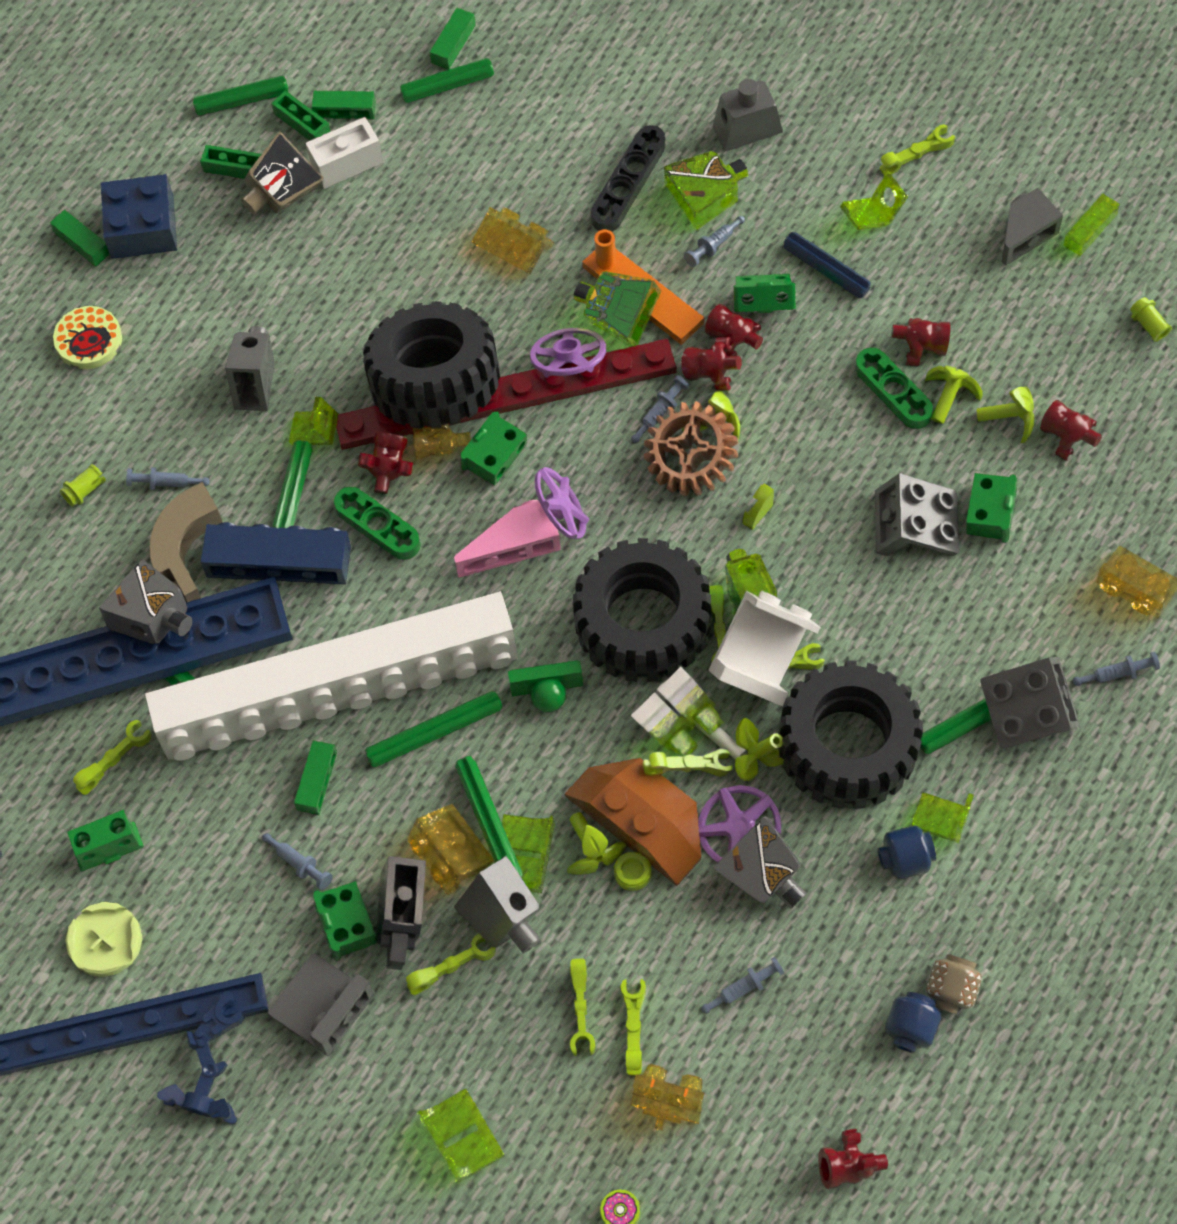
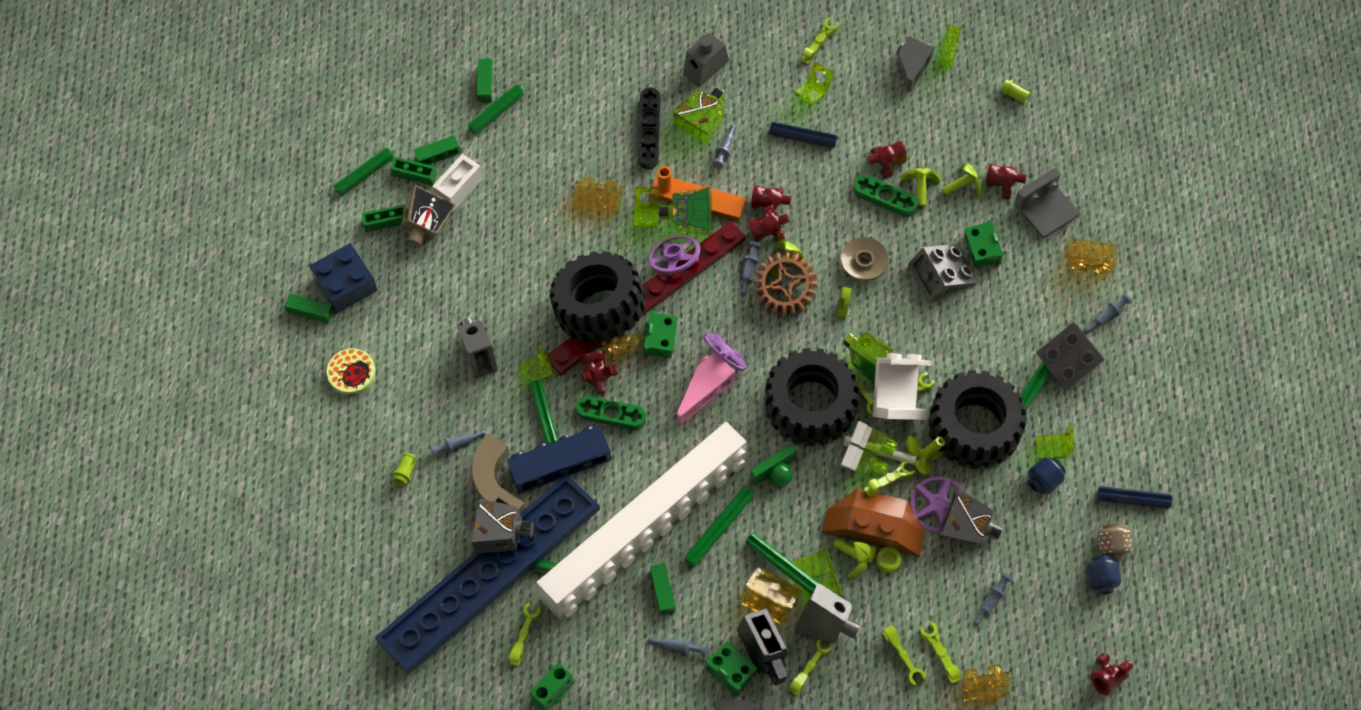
camera: 30 degrees left, 0 degrees up
(561, 285) = (646, 213): none -> clear neon green bracket
(763, 293) = (777, 167): green piece -> none
(822, 446) = (864, 249): none -> dark tan dish
(1018, 936) = (1134, 497): none -> dark blue axle
(1109, 485) = (1045, 204): none -> dark grey bracket

